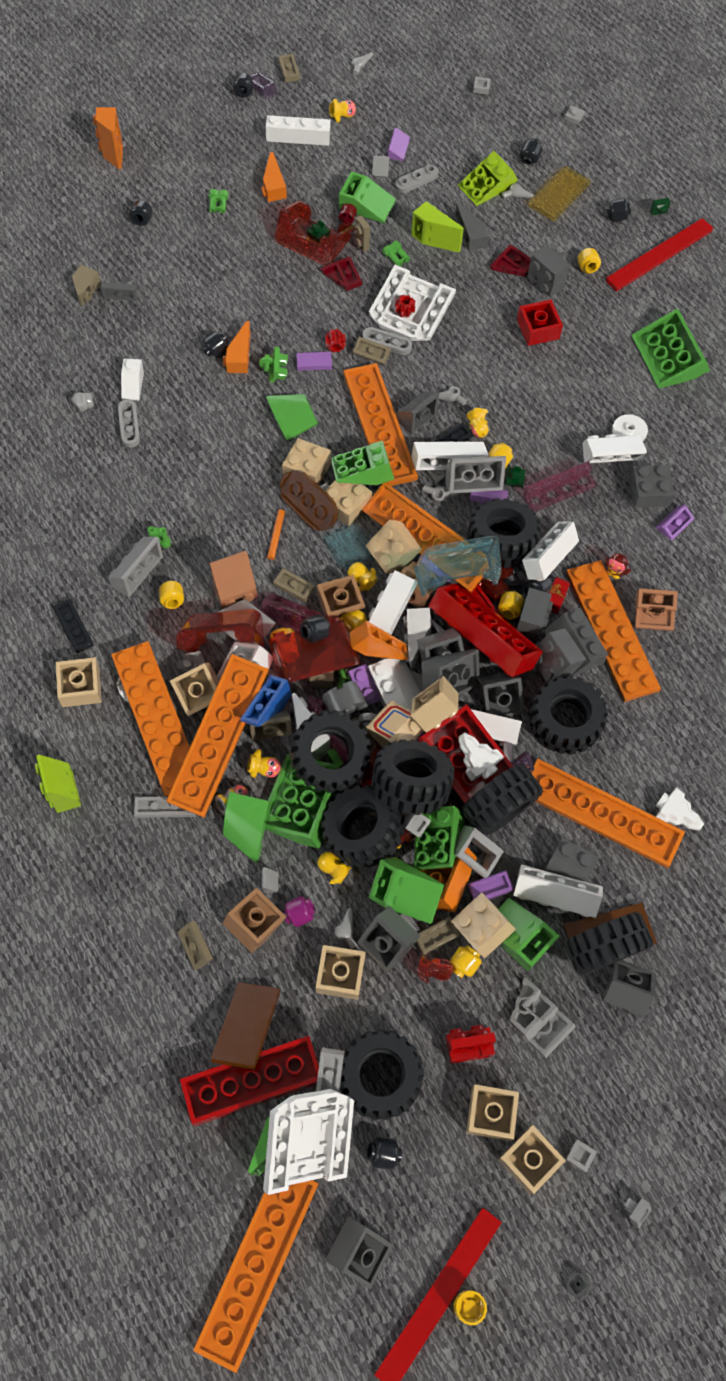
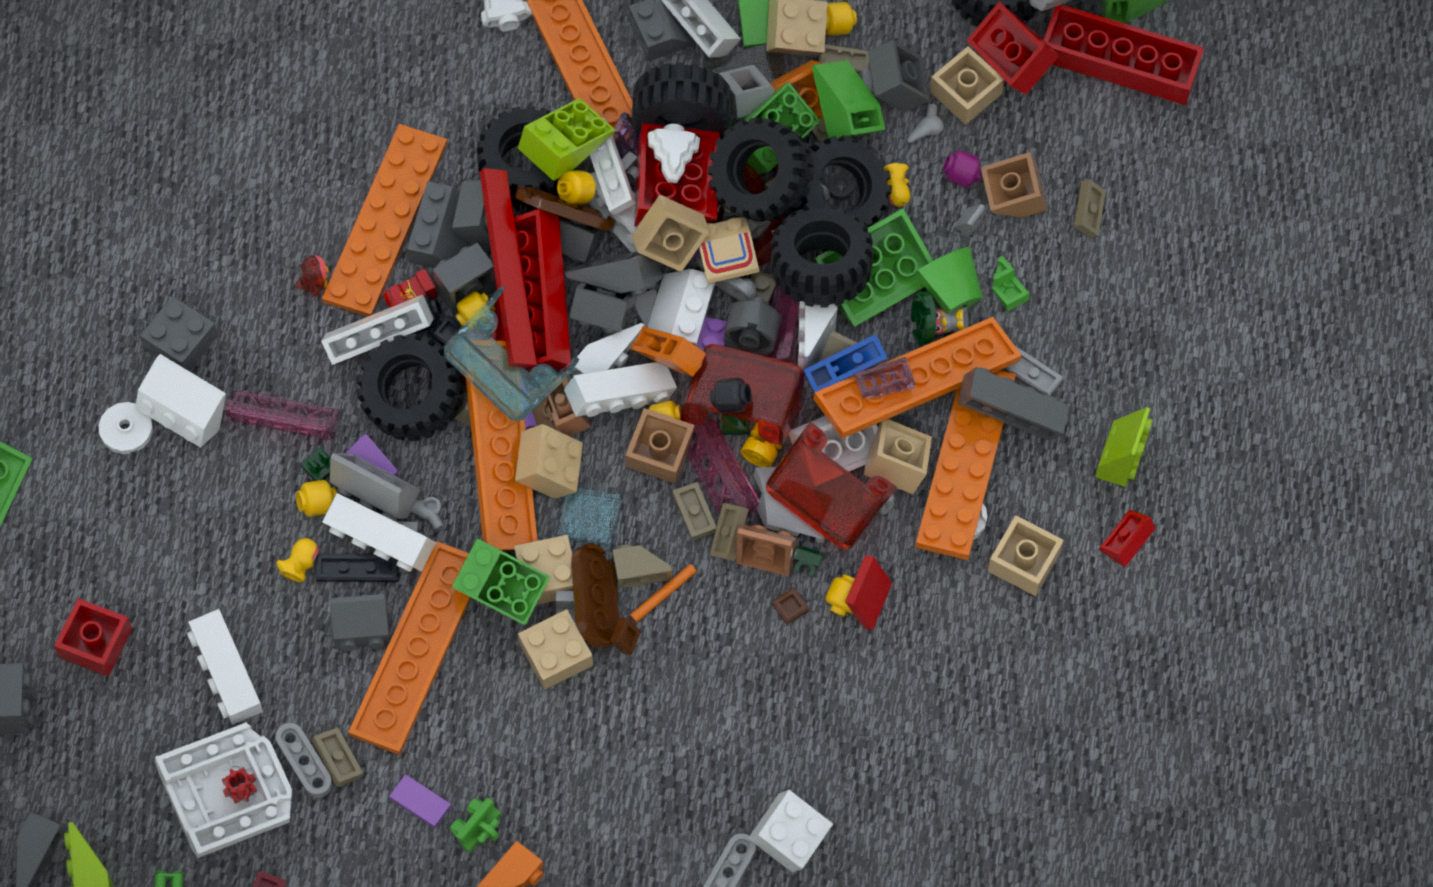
camera: 140 degrees left, 0 degrees up
(26, 743) = (1128, 537): none -> red slope
(73, 625) = (983, 643): black tile -> none
(107, 454) = (790, 831): none -> white brick
(136, 565) = (862, 655): light grey slope -> none
(147, 762) = (1013, 404): none -> dark grey brick
(156, 598) = (868, 592): none -> red tile
(160, 533) = (808, 677): bright green piece -> none
(199, 573) = (790, 606): none -> reddish brown tile
(208, 602) = (808, 556): none -> dark green tile
(212, 853) = (1007, 286): none -> bright green slope
(232, 719) = (891, 368): none -> slope
(245, 782) = (924, 316): none -> dark green tile
(245, 1026) = (1093, 98): reddish brown tile -> none
(263, 765) = (889, 331): animal -> none
(264, 582) = (725, 537): none -> dark tan plate
(276, 496) = (625, 636): none -> reddish brown tile
(292, 414) = (514, 733): bright green slope -> none
(299, 534) = (638, 566): none -> dark tan slope
(326, 1015) = (1012, 48): none -> red slope
(335, 340) = (371, 803): red gear -> none
(363, 576) = (608, 470): yellow animal -> none
(437, 968) = (871, 32): clear red animal -> none
(451, 395) = (292, 627): light grey animal -> none
(465, 353) = (225, 667): none -> white brick
(491, 886) = (767, 63): medium lavender tile -> none
(511, 621) = (508, 268): none -> red tile
(512, 262) = (29, 762): dark red wing -> none
(512, 685) = (553, 204): none -> reddish brown tile
(513, 733) = (612, 177): none -> white plate
(518, 705) = (576, 187): none -> yellow head
(551, 724) = (564, 138): none -> lime slope
(655, 609) = (320, 201): nougat brick -> none
(675, 522) = (192, 285): medium lavender slope -> none

